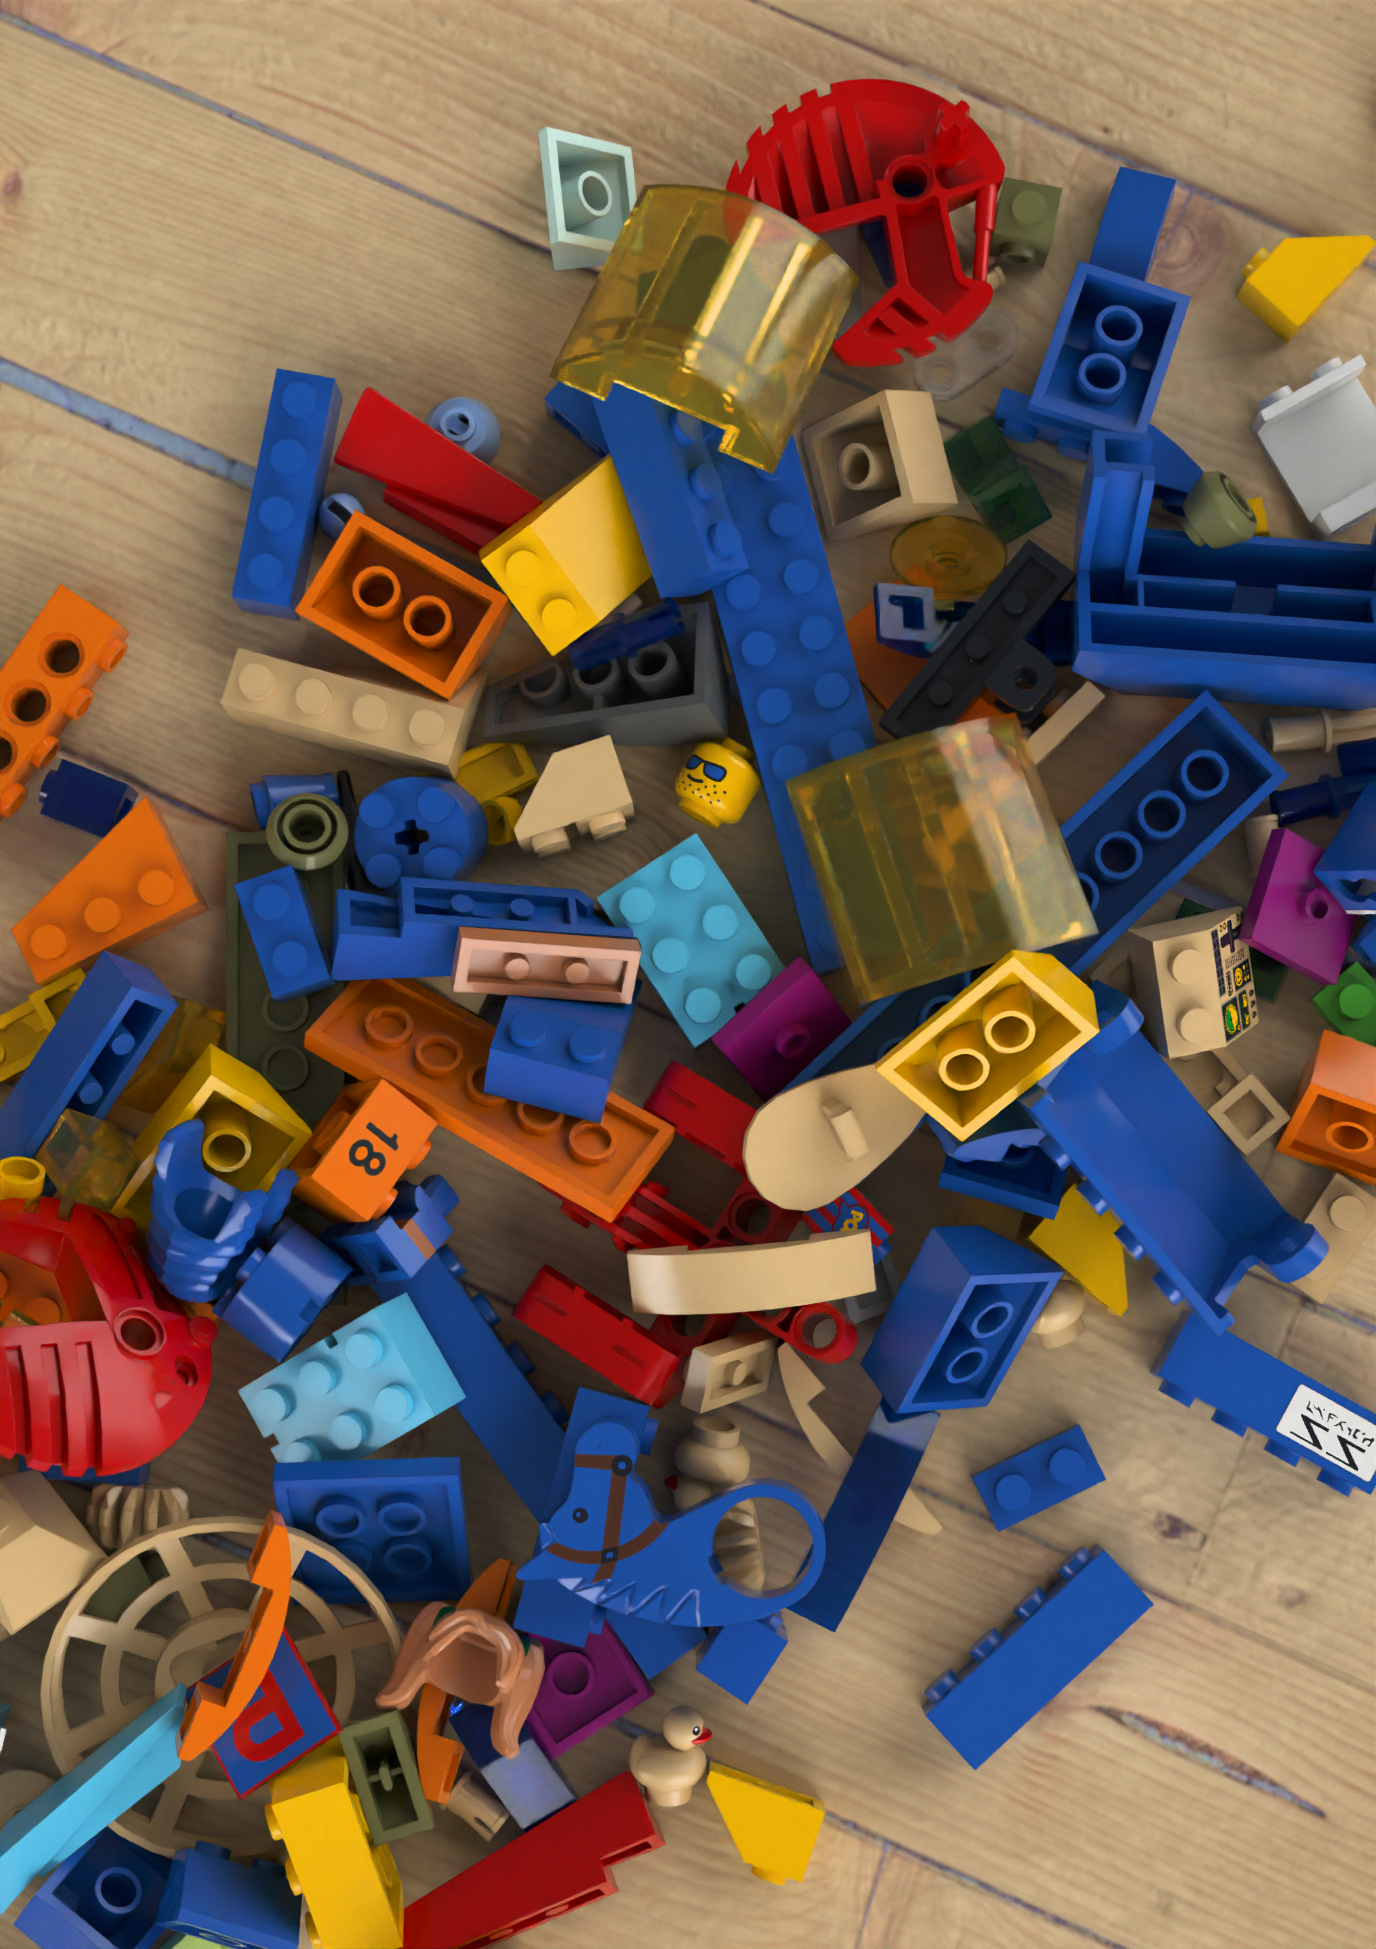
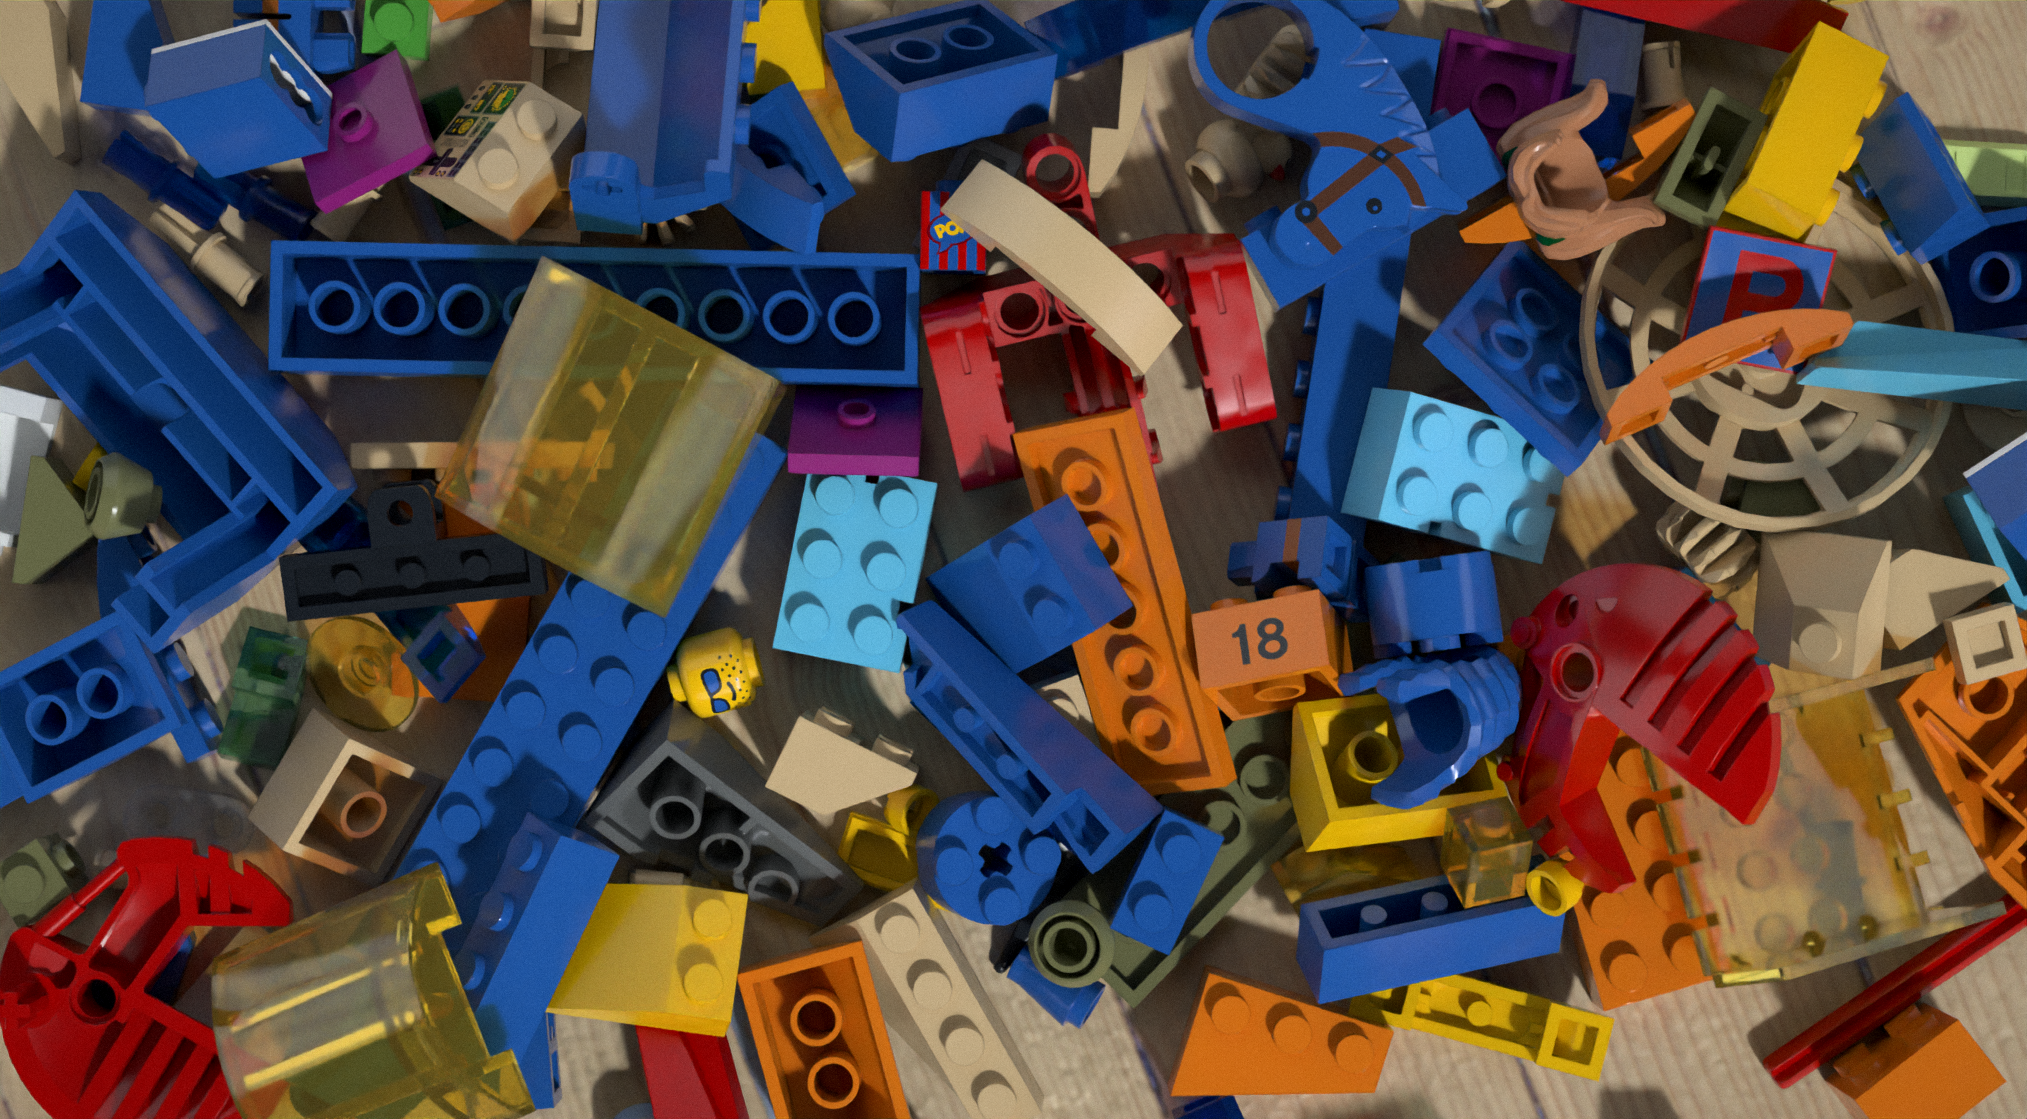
camera: 140 degrees left, 5 degrees up
(545, 965) = (990, 656): nougat plate -> none
(626, 635) = (674, 854): clear blue axle -> none
(728, 1370) = (1153, 212): tan plate -> none
(825, 1136) = (894, 310): tan shield -> none
(993, 1041) = (705, 252): yellow slope -> none
(1248, 456) = (51, 522): none -> olive slope

